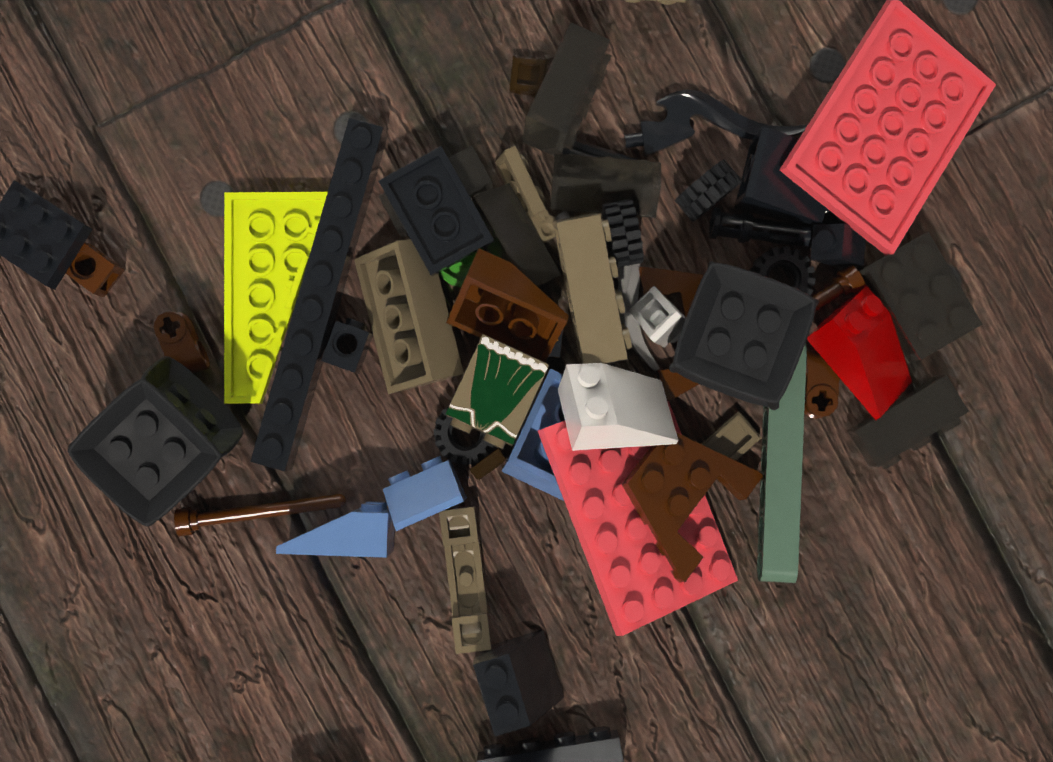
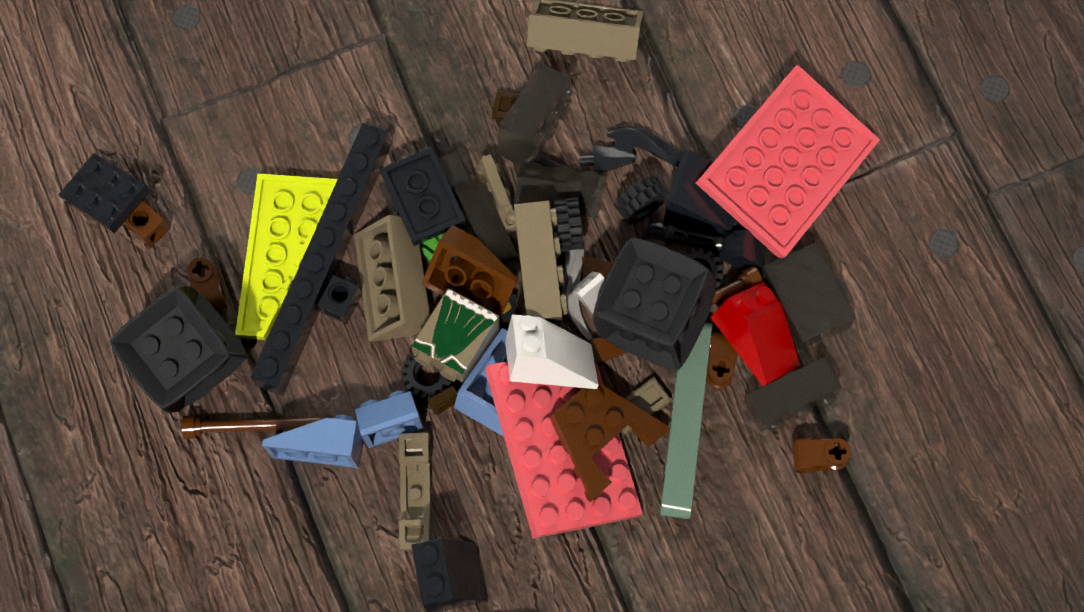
camera: 10 degrees right, 15 degrees down
(940, 493) = (816, 456): none -> reddish brown piece

